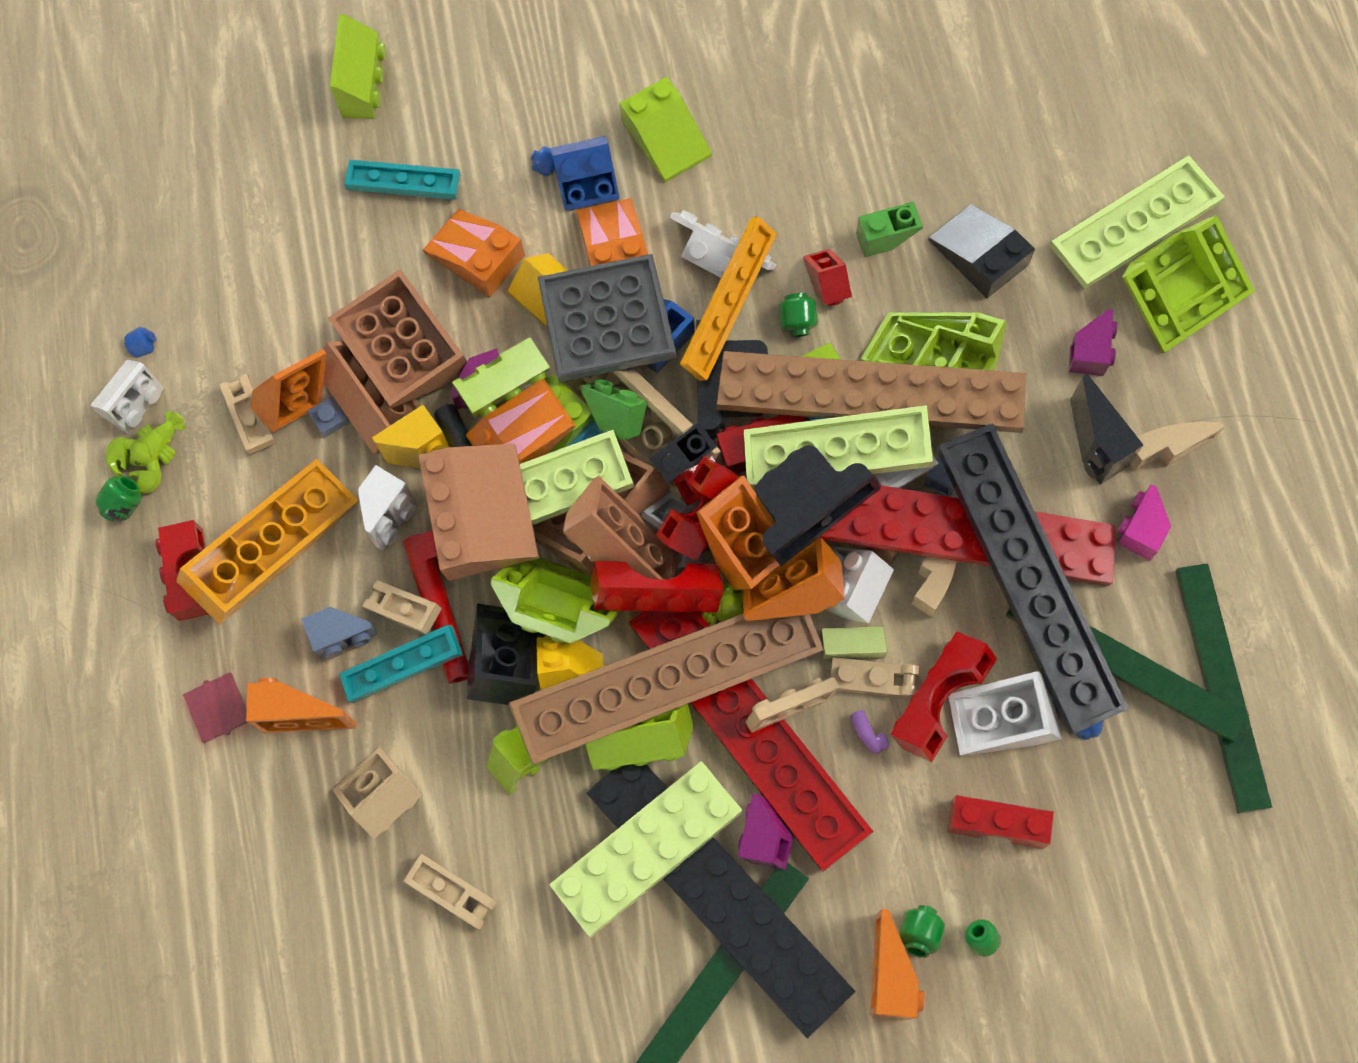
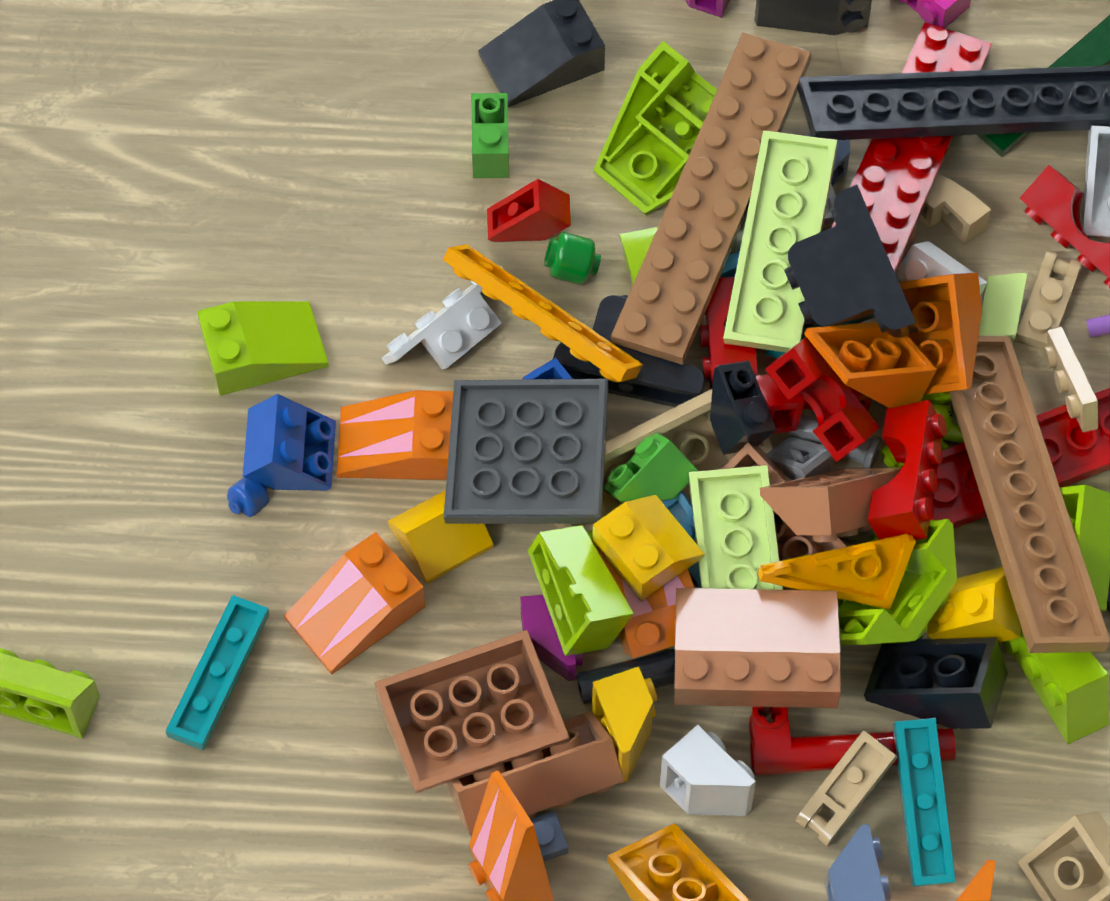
camera: 80 degrees left, 10 degrees down
(539, 411) = (645, 544): none -> yellow slope
(560, 570) = (859, 573): none -> light orange wing

